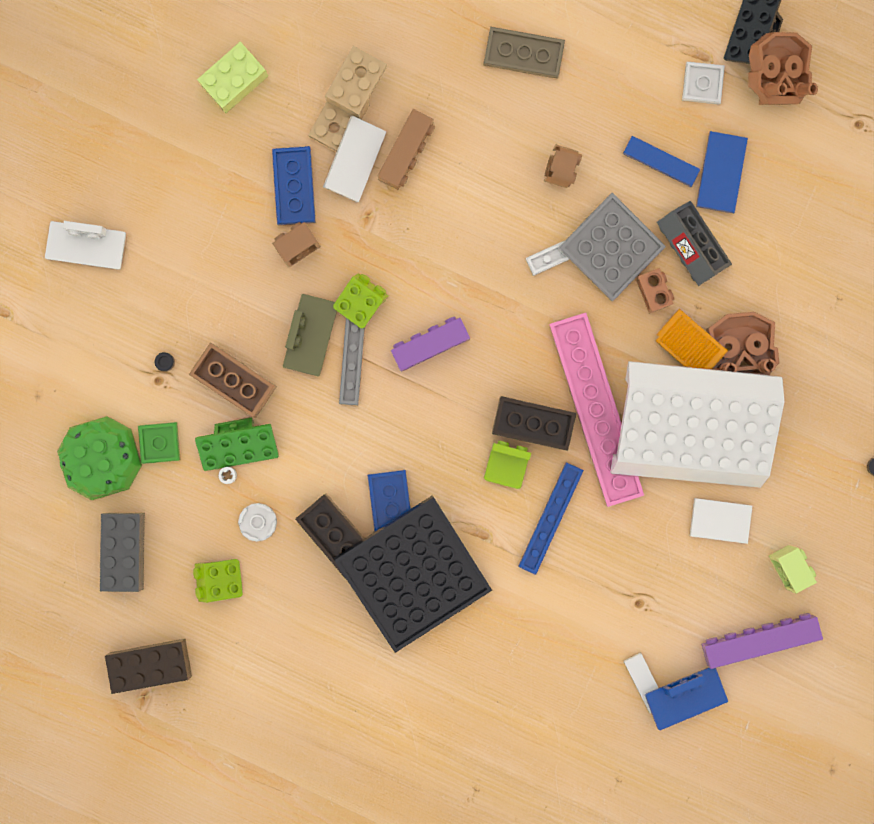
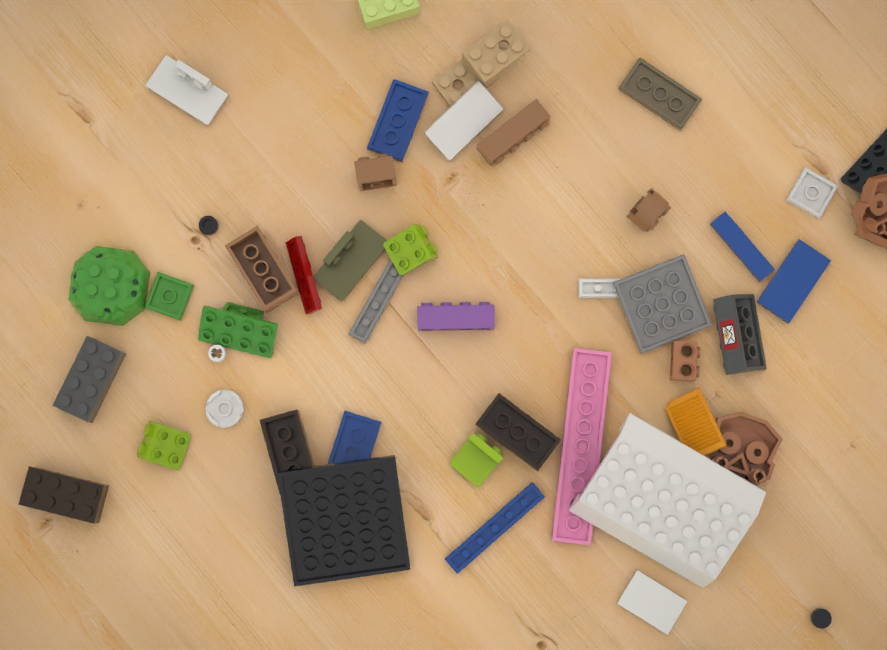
camera: 25 degrees right, 5 degrees down
(273, 368) = (303, 275): none -> red plate

